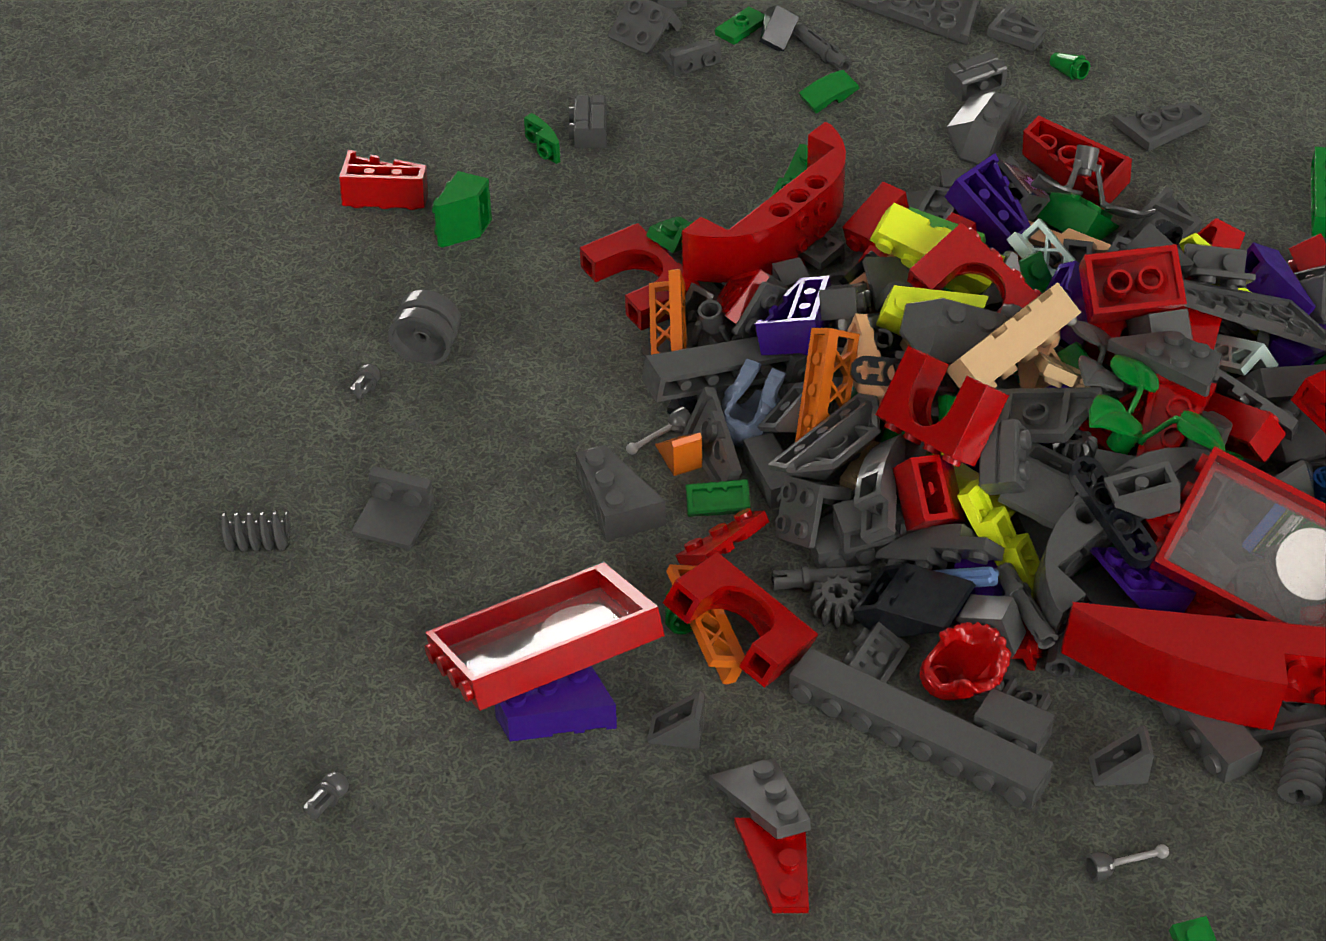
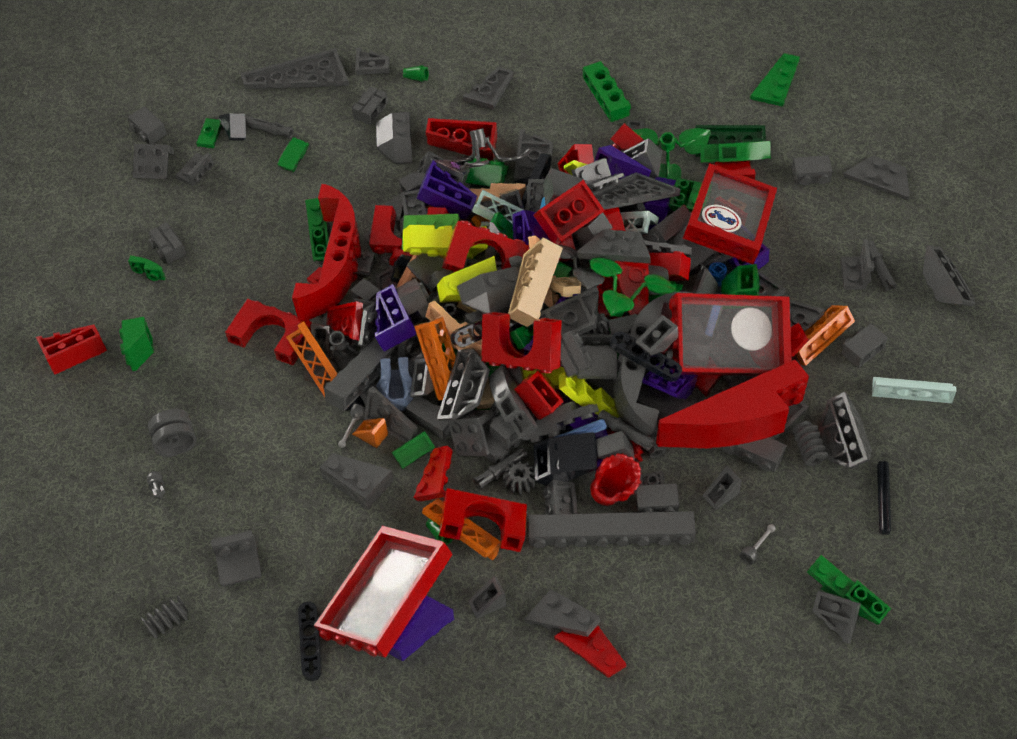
camera: 30 degrees left, 10 degrees up
(406, 652) = (309, 641): none -> black beam
(669, 233) = (274, 294): green bracket -> none

